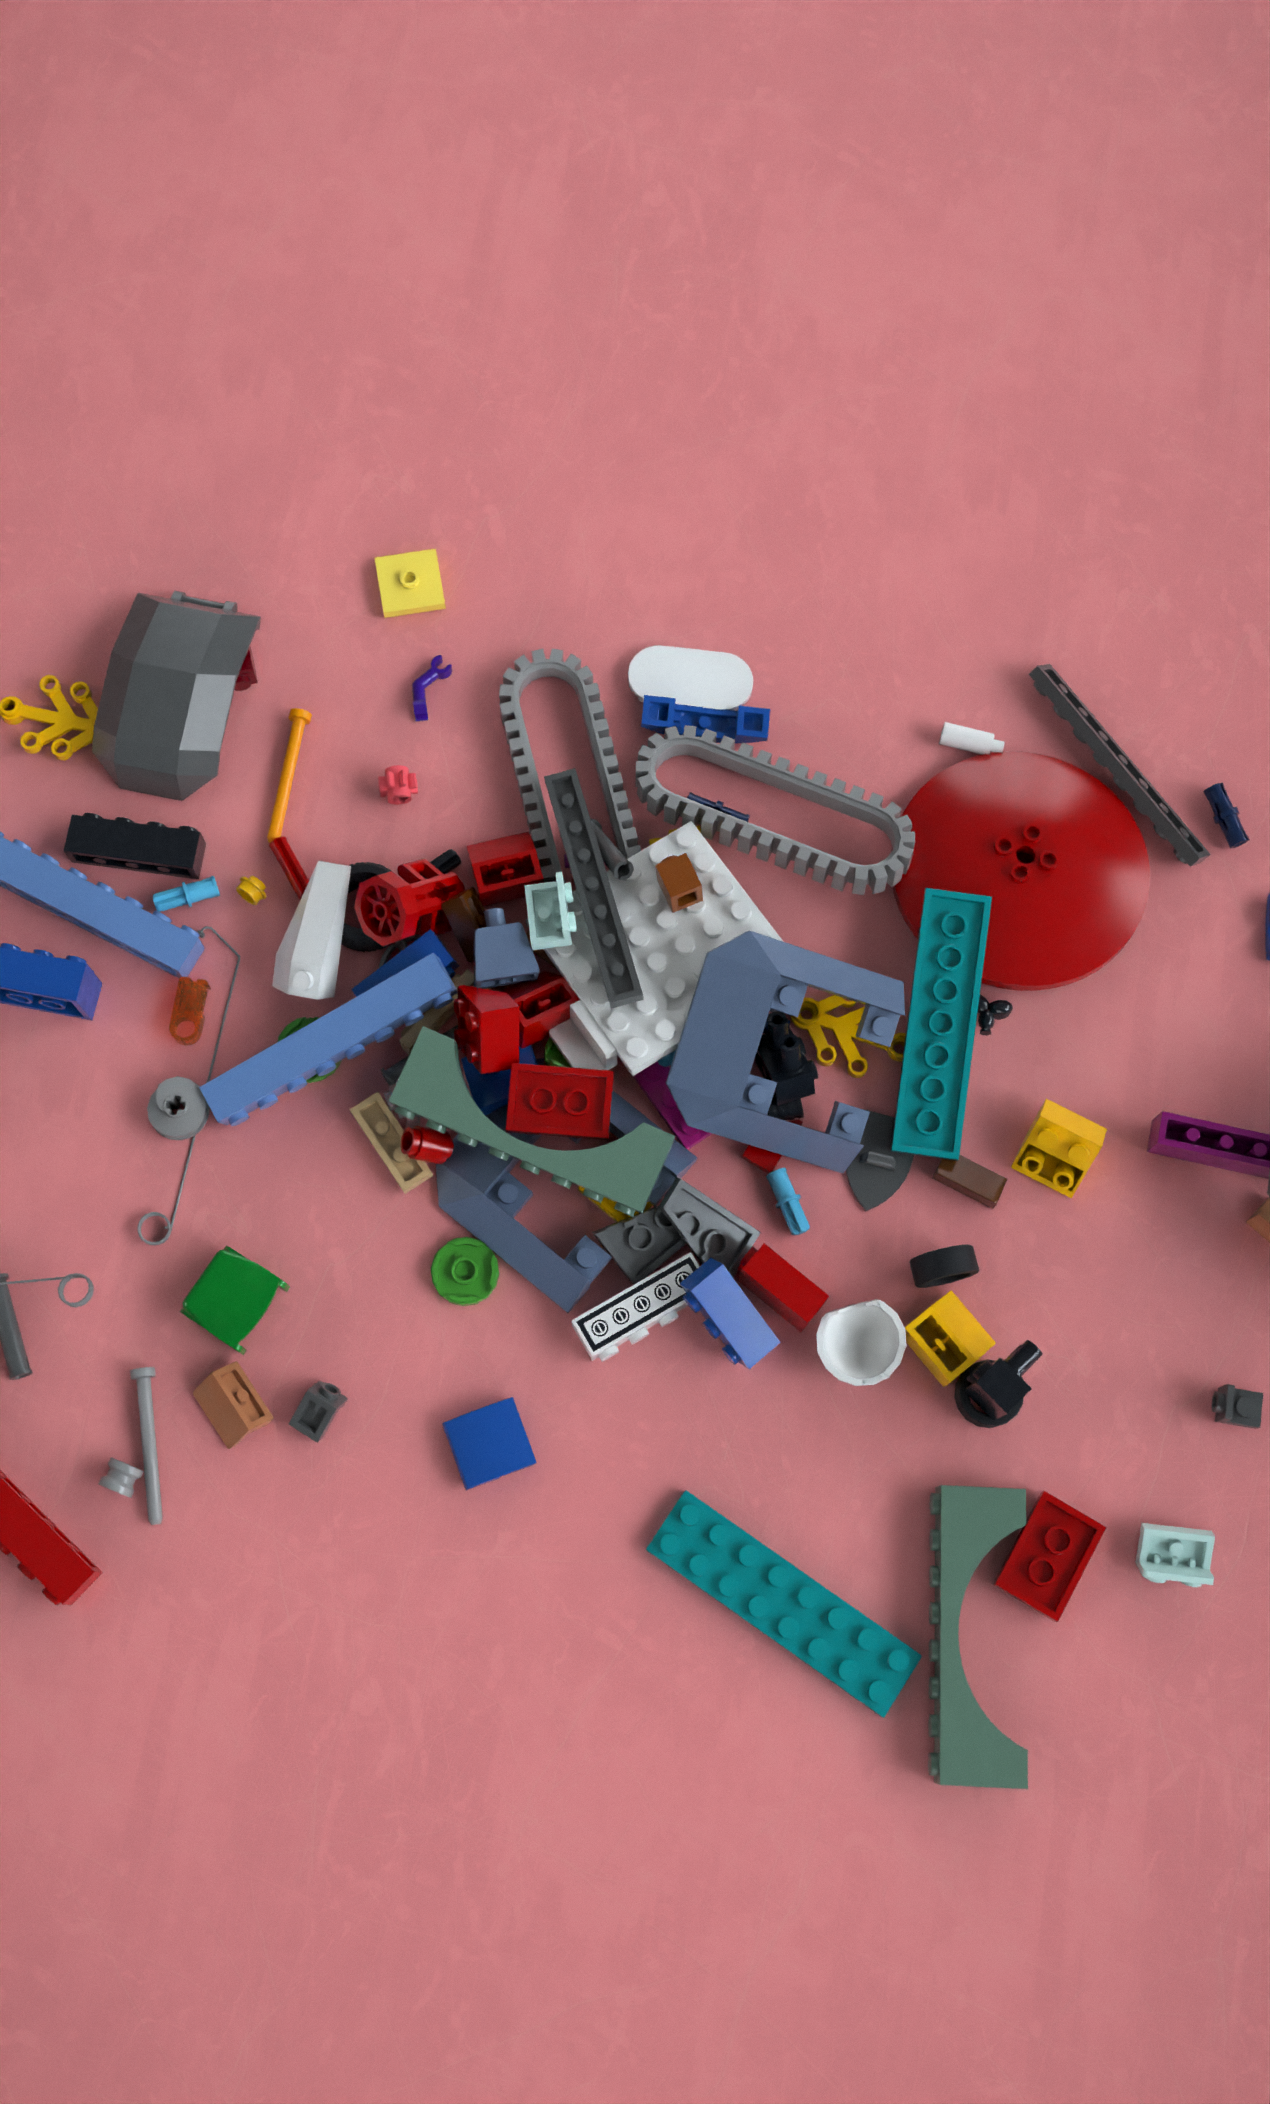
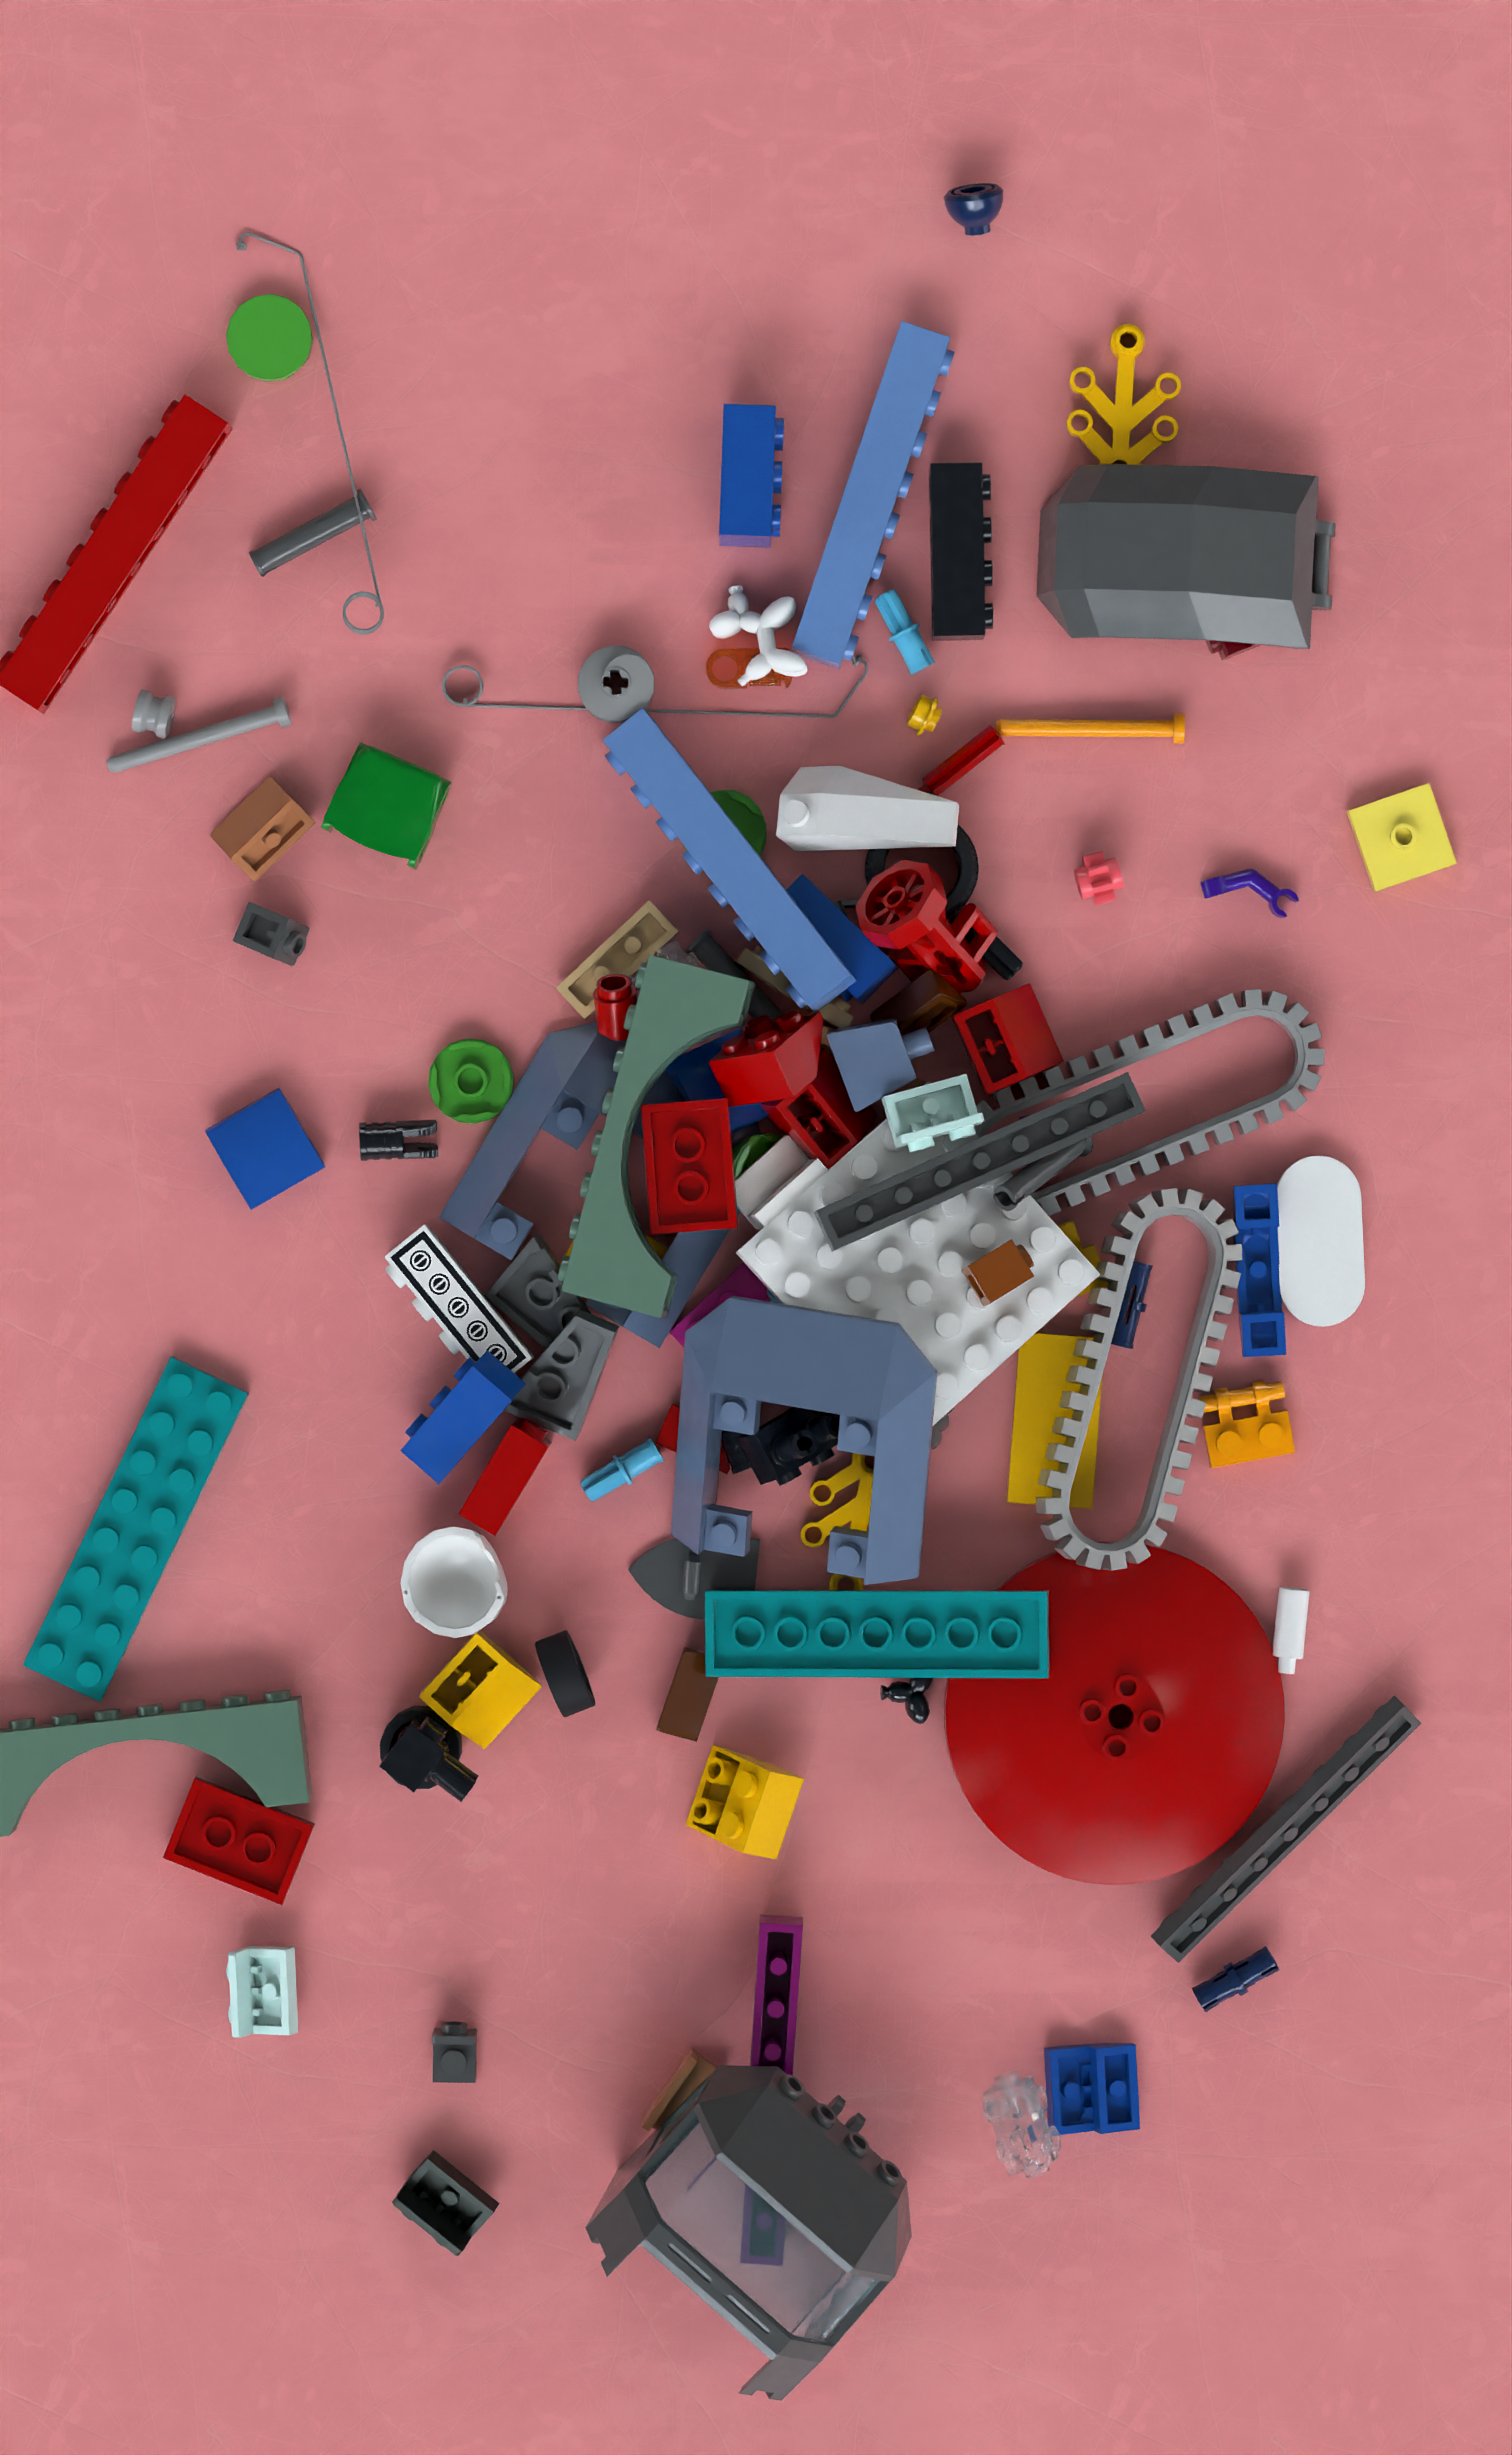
camera: 80 degrees right, 15 degrees up
(153, 982) = (772, 619): none -> white piece
(500, 1341) = (387, 1140): none -> black hinge
(789, 891) = (1038, 1390): none -> yellow tile
(826, 746) = (1248, 1437): none -> light orange plate

